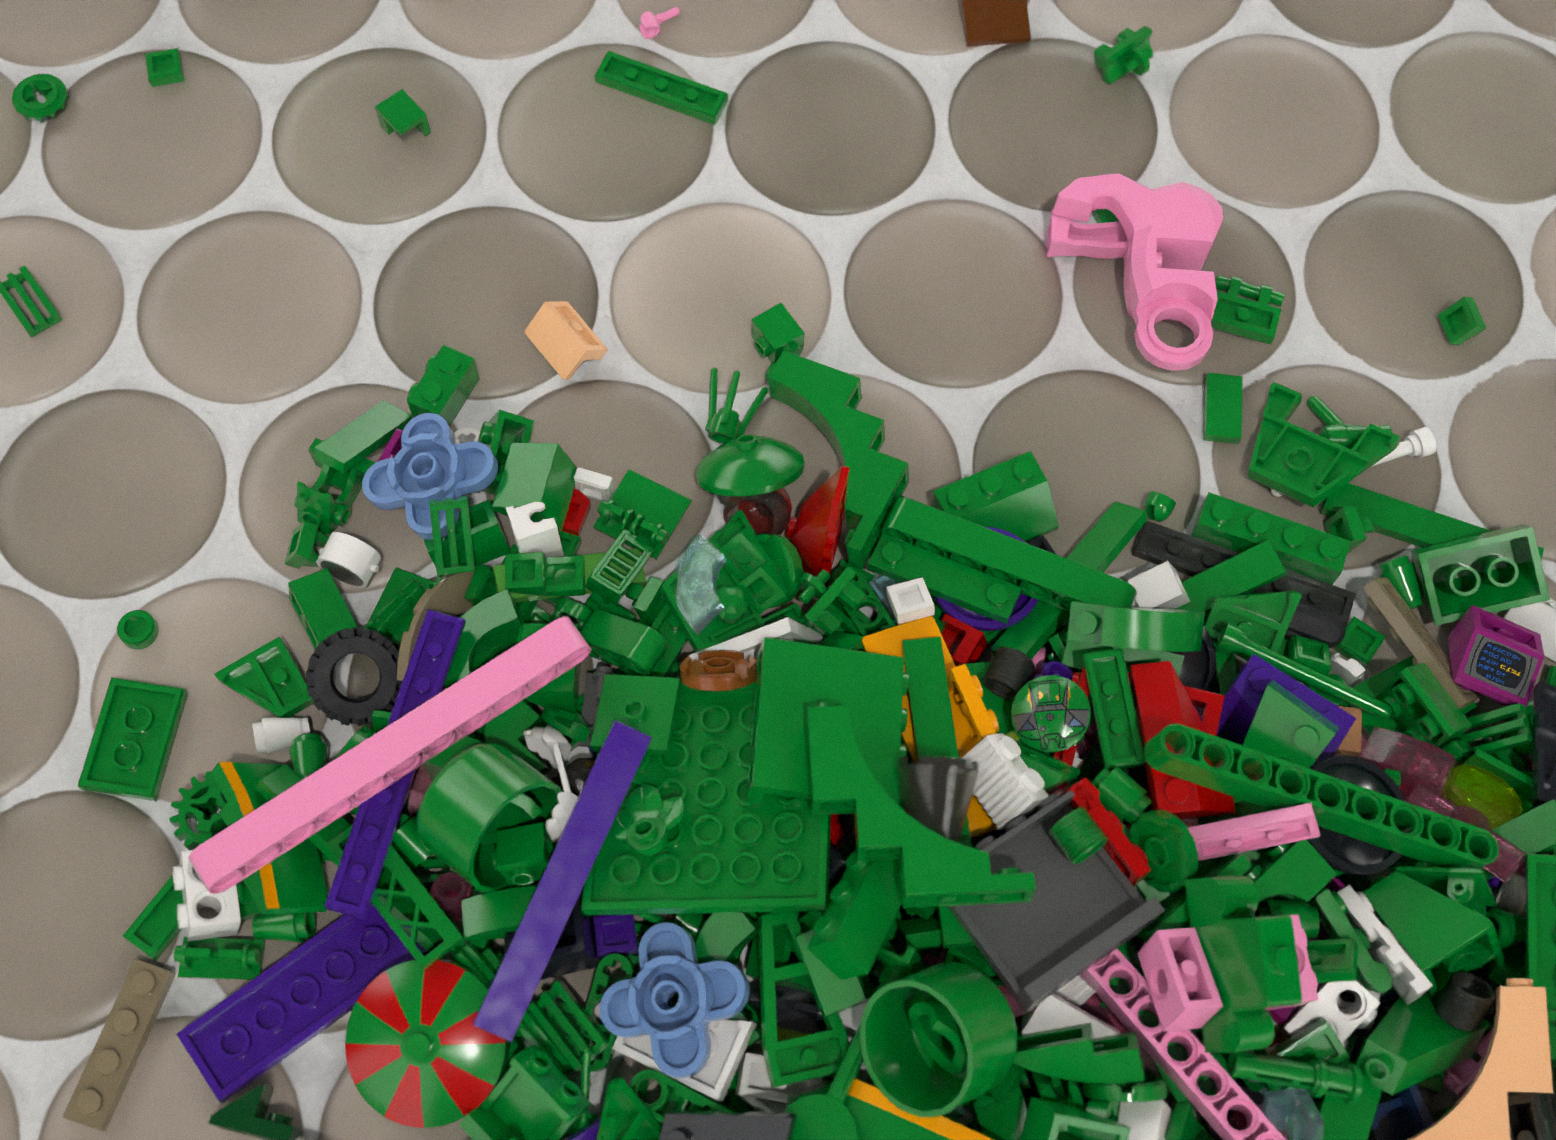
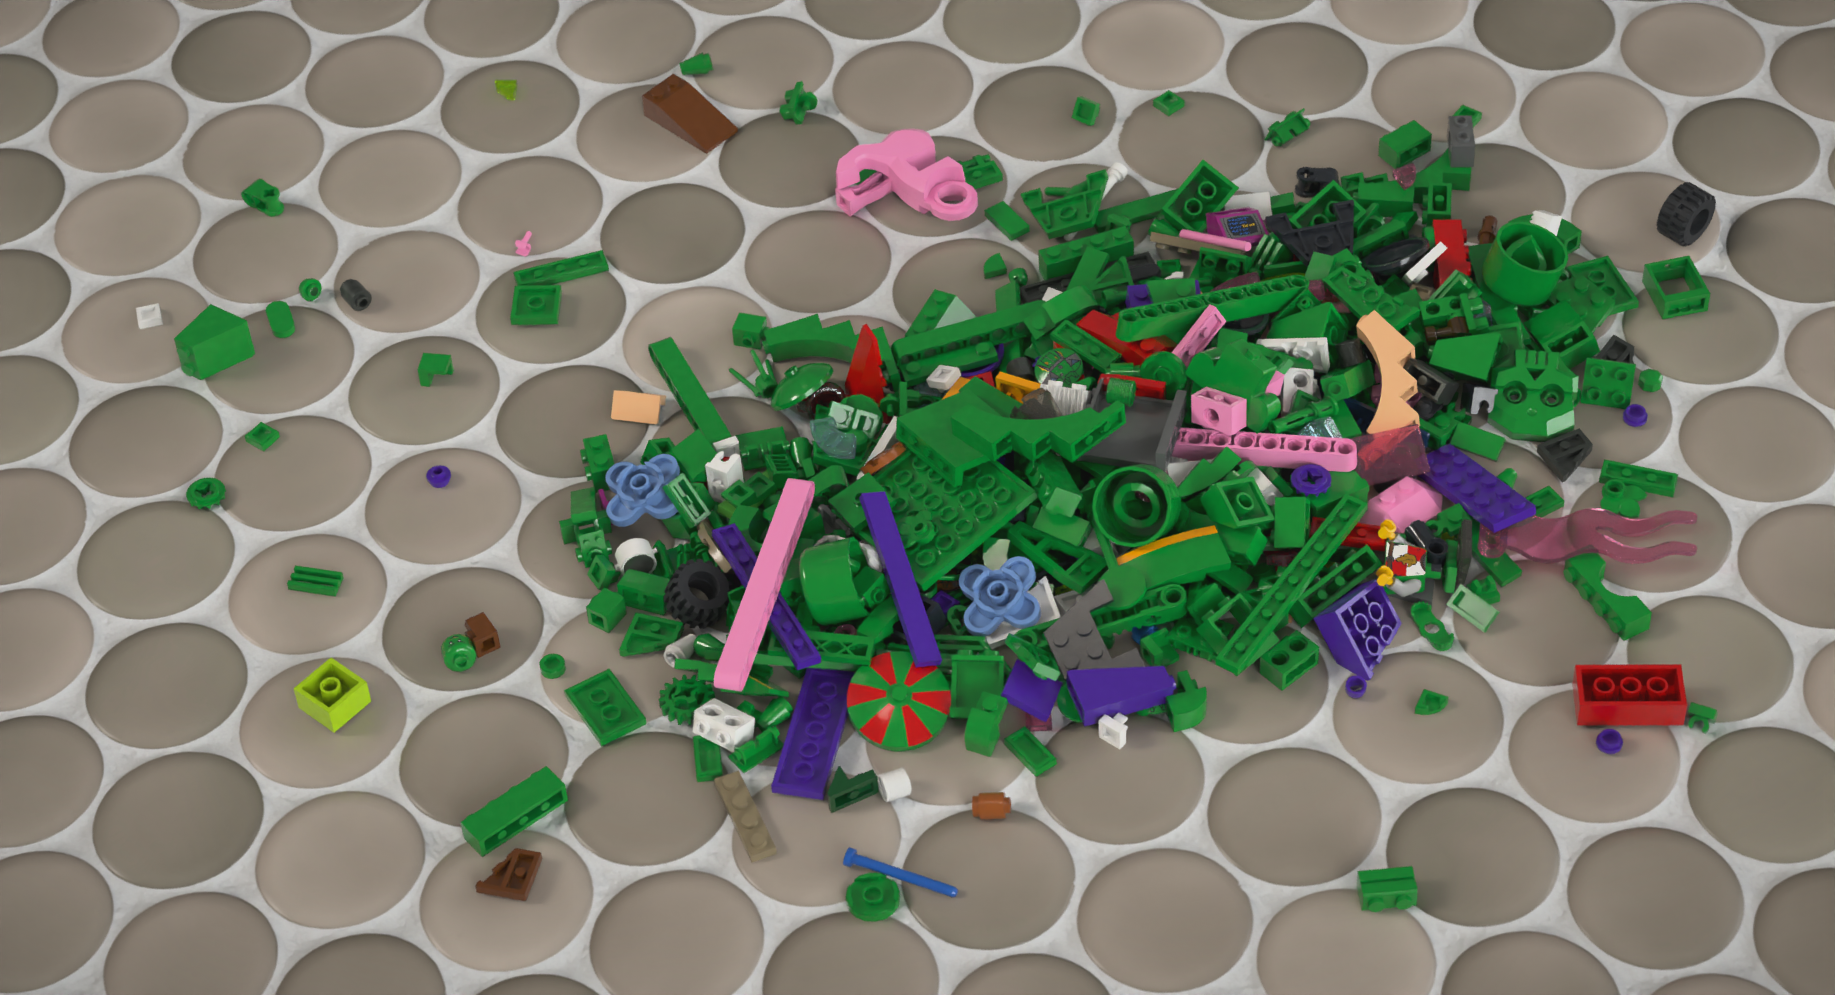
camera: 35 degrees left, 20 degrees down
(55, 528) = (458, 652): none -> green head
(102, 523) = (482, 634): none -> reddish brown brick
(257, 603) = (606, 610): none -> green brick
(276, 271) = (438, 476): none -> dark purple plate
(375, 590) = (664, 565): none -> green tile
(588, 113) = (536, 305): none -> green plate
(629, 372) = (687, 390): none -> green beam
(668, 558) = (799, 450): none -> green cone
(1146, 464) = (994, 266): none -> green tile
(1446, 660) = (1215, 240): none -> bright pink bar

